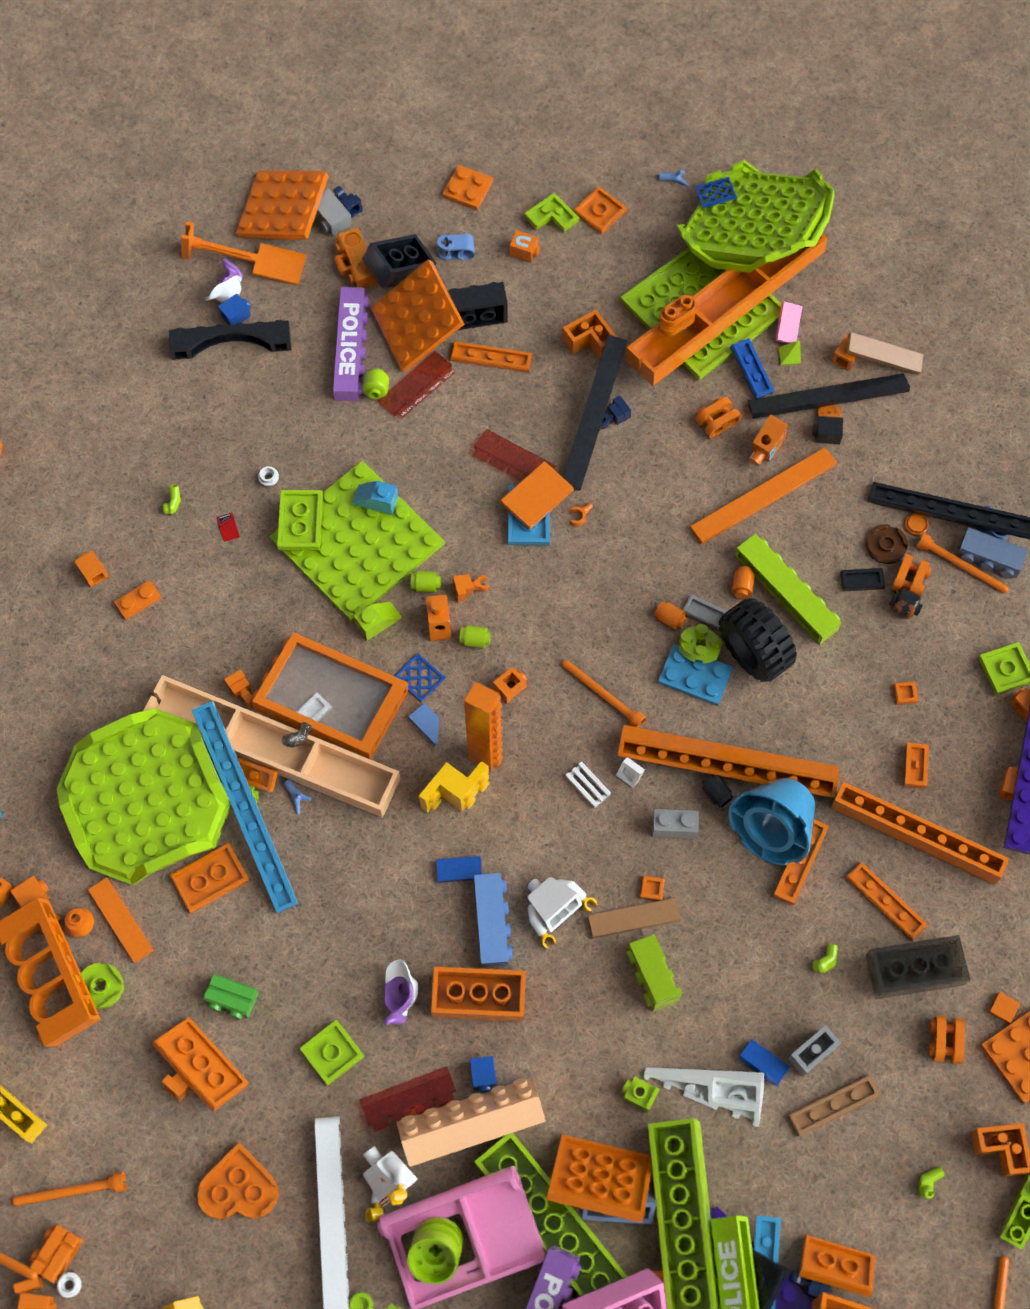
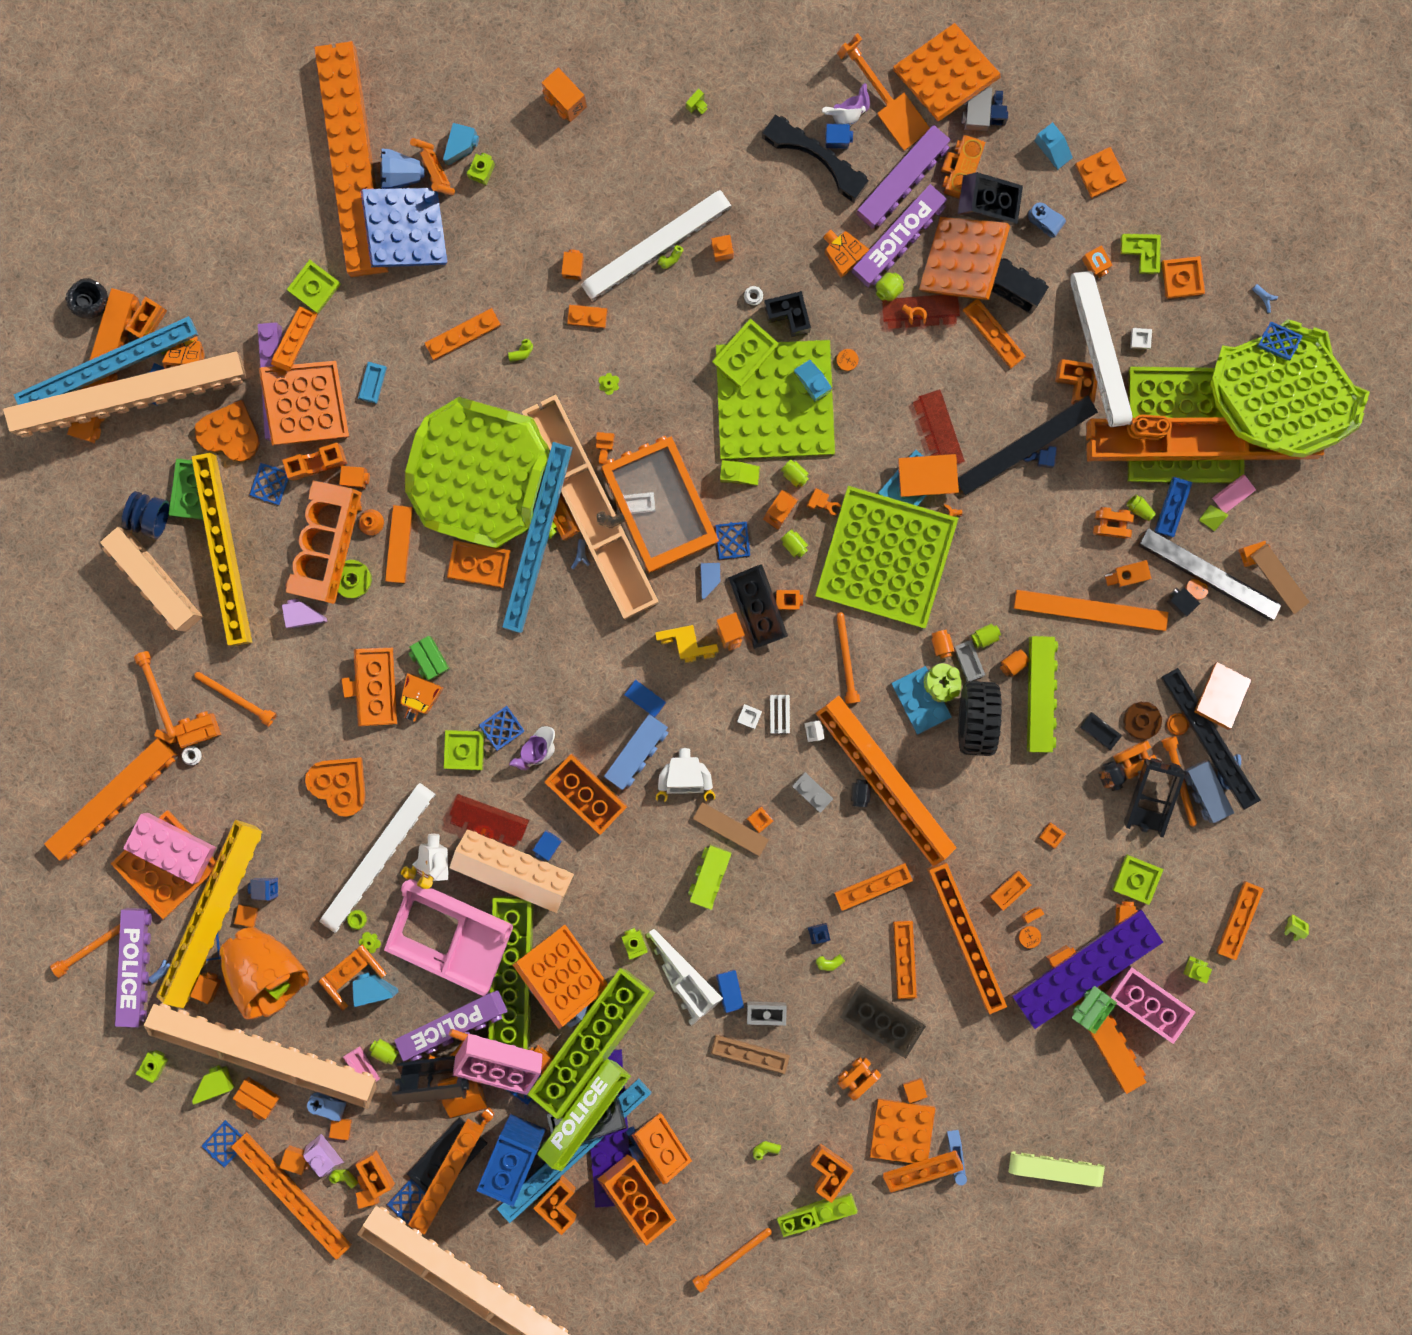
camera: 45 degrees right, 20 degrees up
(36, 698) = (462, 334): none -> orange plate
(76, 1056) = (300, 614): none -> lavender slope
(95, 371) = (696, 102): none -> lime tile
(104, 671) = (523, 353): none -> lime arm
(150, 500) = (653, 246): none -> white beam
(205, 642) = (609, 389): none -> lime plant
(210, 459) = (722, 248): none -> orange brick
(228, 527) = (694, 311): red sticker -> none
(249, 1037) = (419, 696): none -> orange torso
(307, 460) = (791, 308): none -> black brick
(314, 387) = (844, 251): none -> orange torso
(315, 301) = (903, 176): none -> medium lavender brick
(346, 1019) = (493, 717): none -> blue window
(390, 465) = (847, 360): none -> orange piece
(413, 193) = (1054, 145): none -> dark azure slope
(415, 384) = (915, 311): none -> orange piece
(435, 1250) = (424, 930): lime wheel -> none
(515, 714) = (758, 606): none -> black tile
(561, 585) = (886, 557): none -> lime plate
(563, 807) = (749, 716): none -> white plate
(587, 296) = (1101, 349): none -> white beam
(609, 273) = (1141, 338): none -> white plate
(700, 580) = (986, 636): none -> lime brick
(727, 389) = (1140, 507): none -> lime cone
(775, 820) = (878, 850): dark azure cone -> none
(793, 941) = (819, 933): none -> dark blue piece
(929, 472) = (1222, 696): none -> tile
(953, 768) = (1032, 914): none -> orange tile
(969, 613) = (1150, 819): none -> black door
(969, 791) = (1030, 937): none -> orange piece

